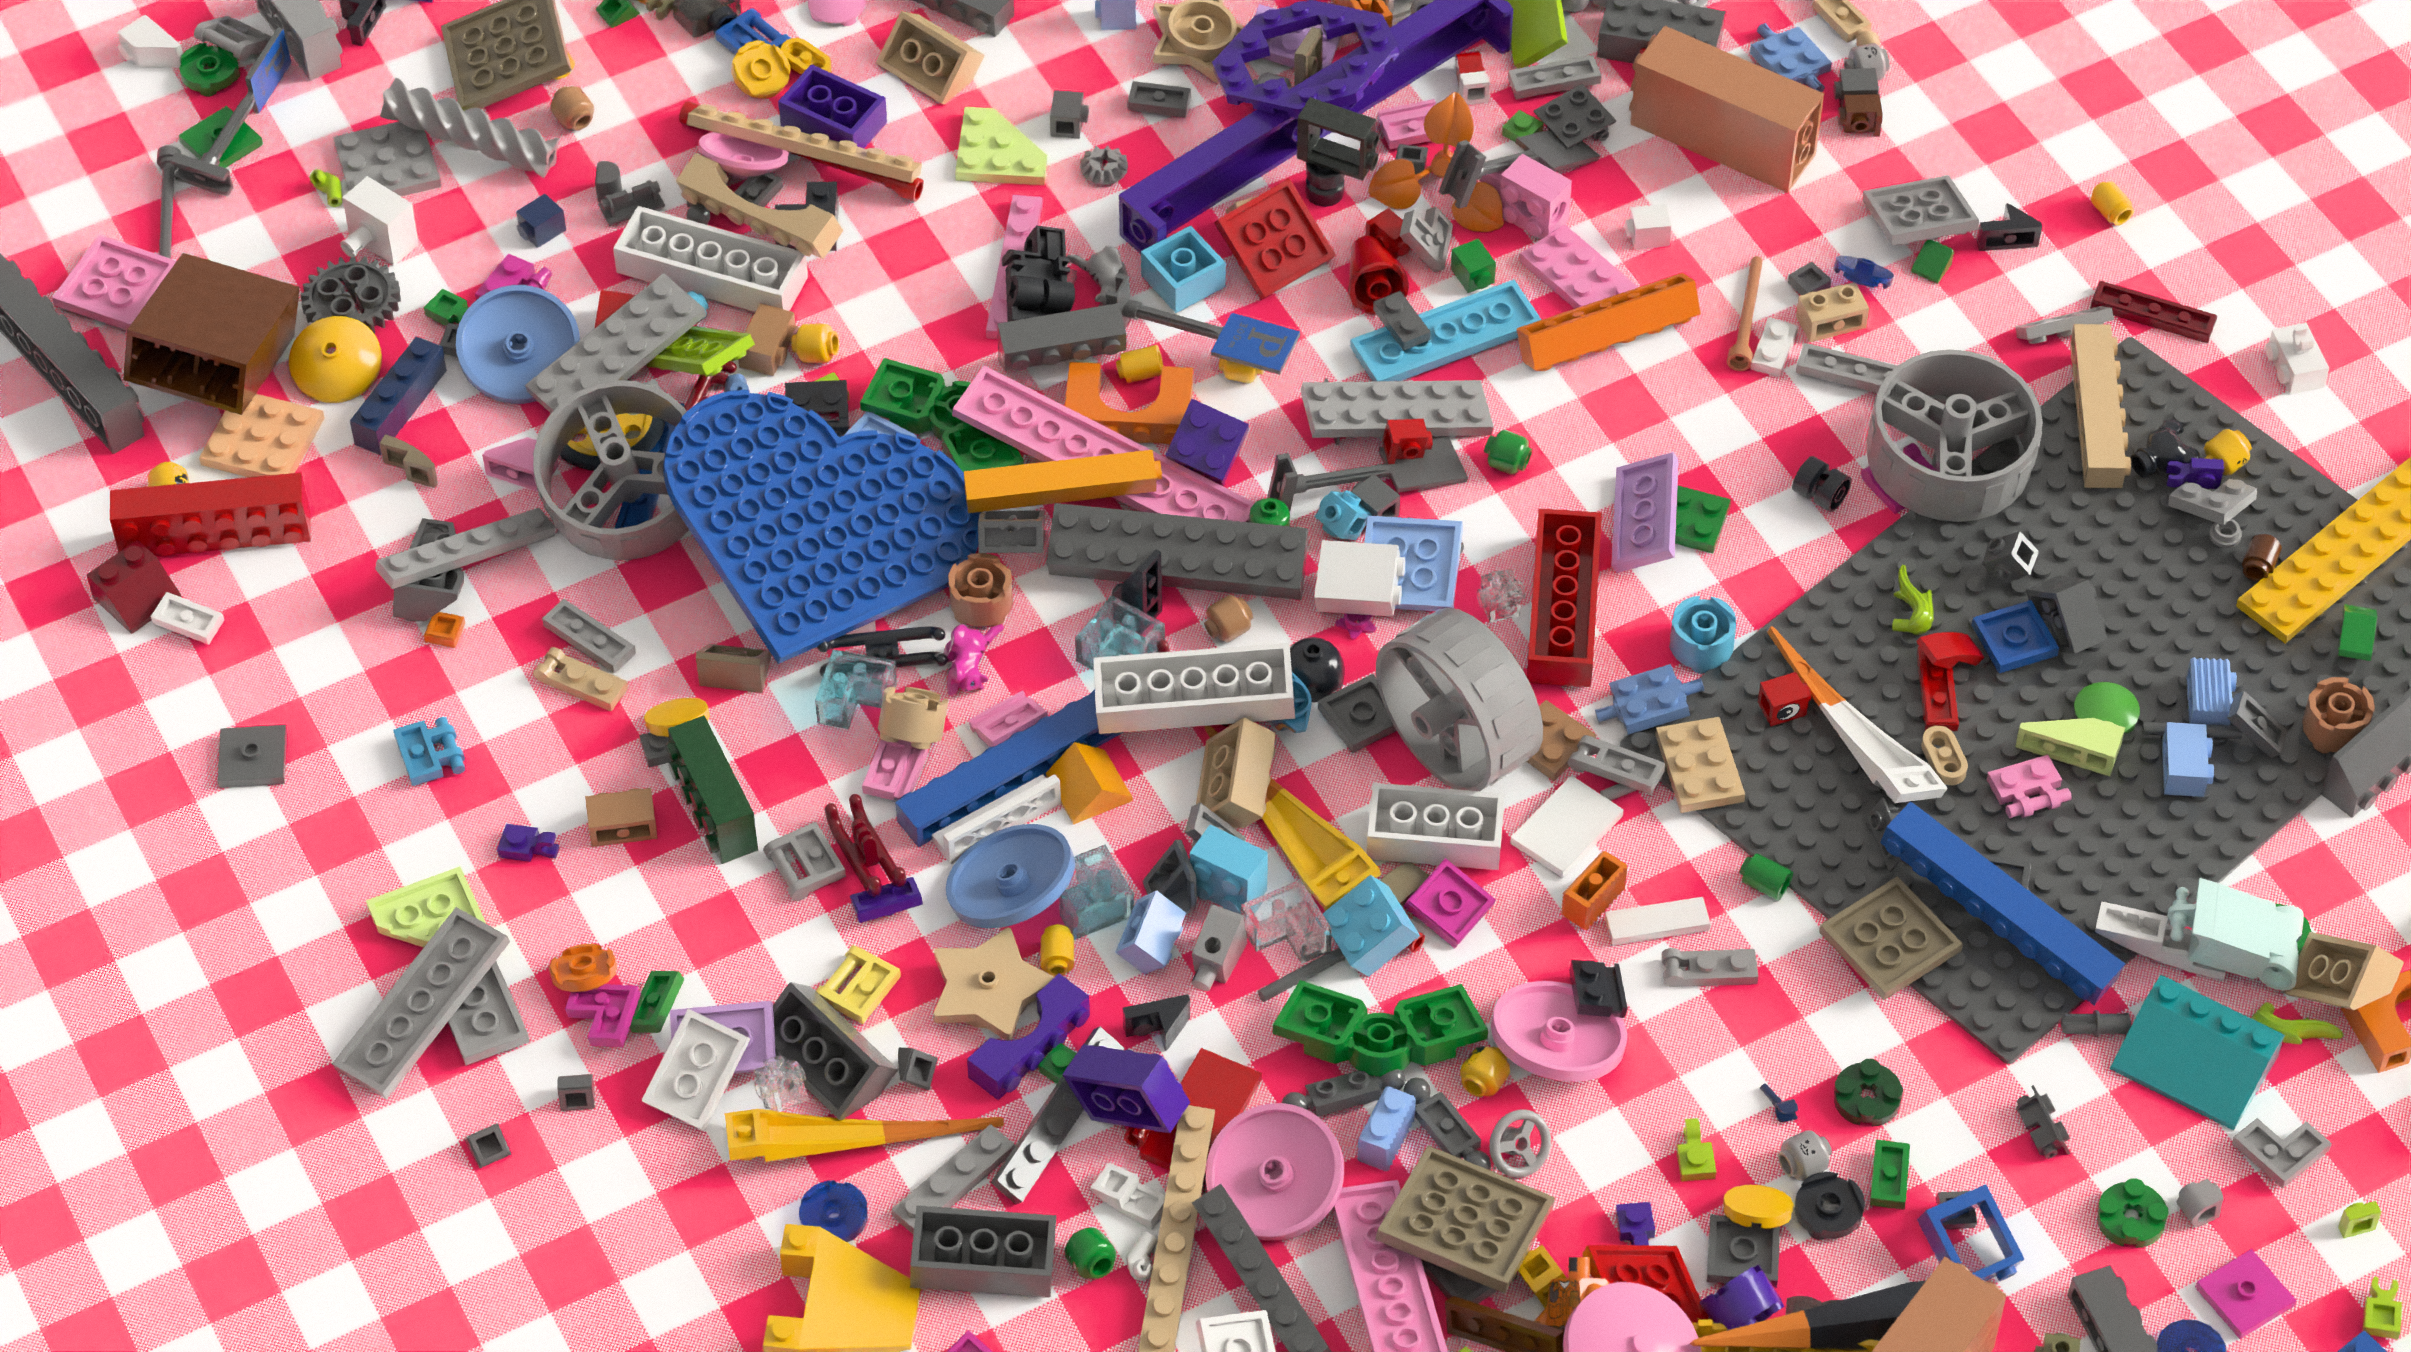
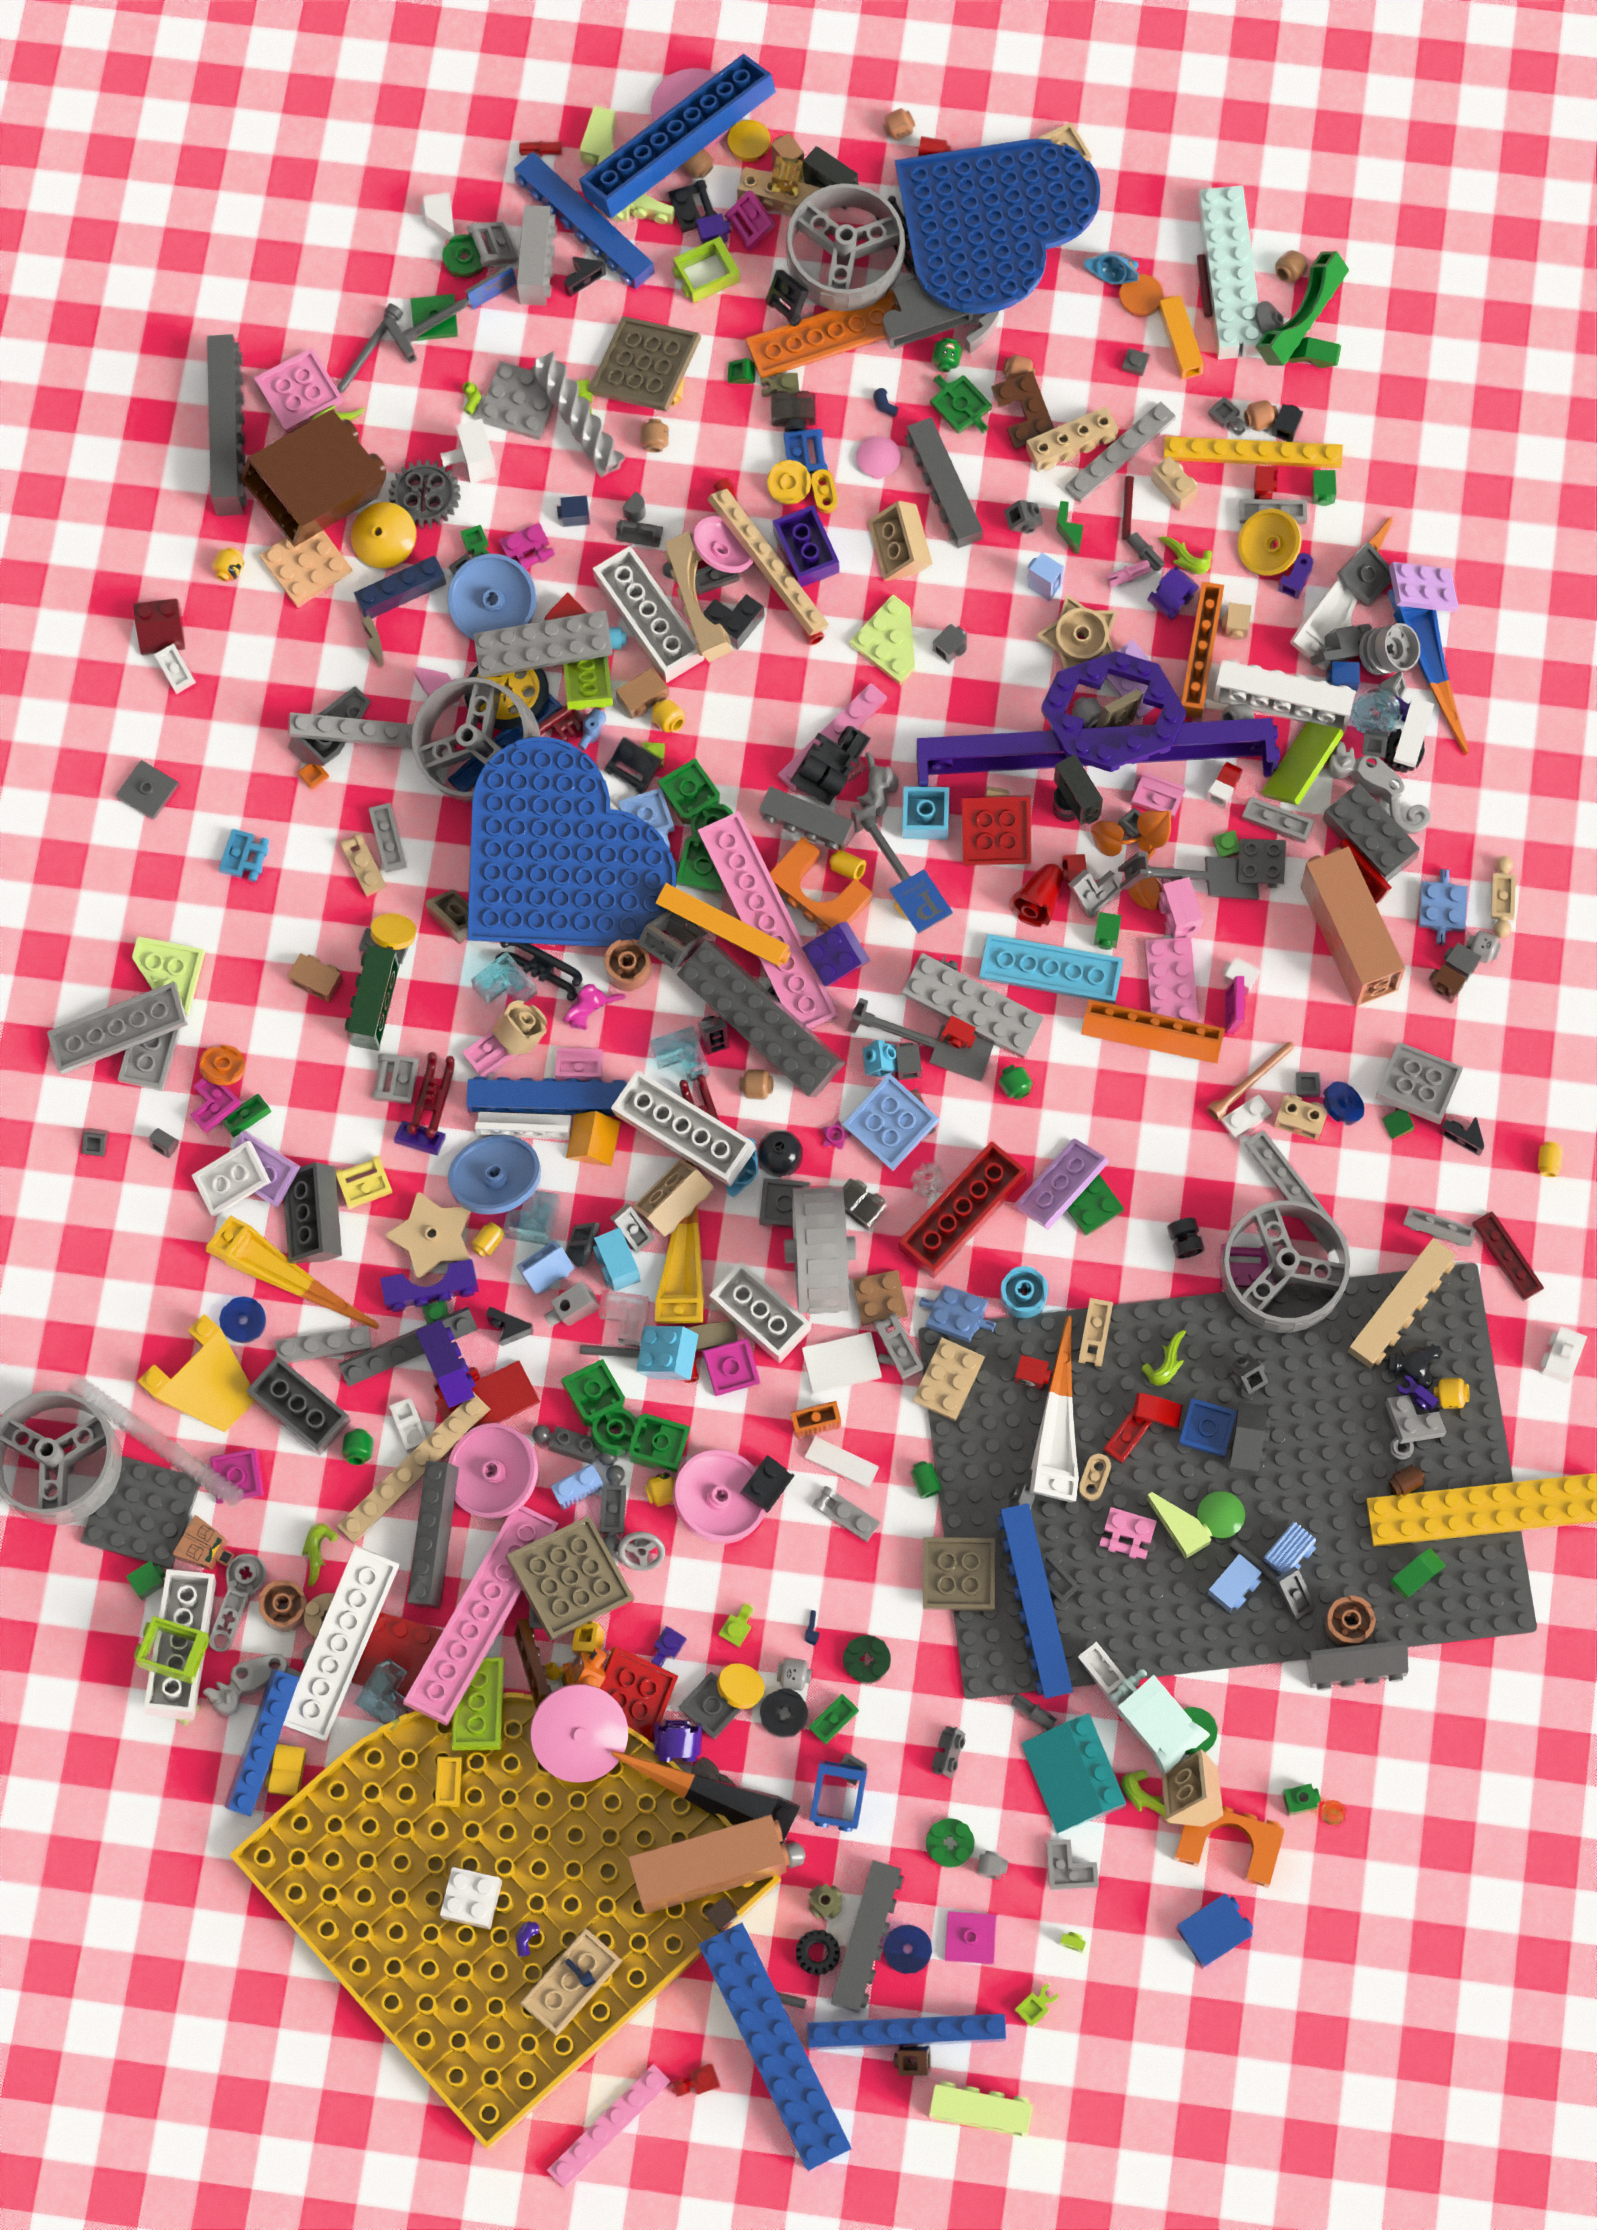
camera: 40 degrees right, 20 degrees up
(212, 514) = (231, 607): red brick -> none
(522, 842) = (252, 955): dark purple plate -> none
(780, 1083) = (269, 1220): clear brick -> none
(916, 1067) = (354, 1259): dark grey slope -> none
(1113, 171) = (945, 706): light grey gear -> none
(1138, 1259) = (384, 1466): white arm -> none
(1159, 99) = (1016, 669): dark grey plate -> none
(1270, 512) = (834, 1032): green head -> none
(1359, 578) = (848, 1113): white brick -> none
(1401, 320) = (1027, 943): dark grey plate -> none
(1670, 244) = (1234, 1005): none -> dark pink plate
(1813, 622) = (1095, 1331): none -> tan plate

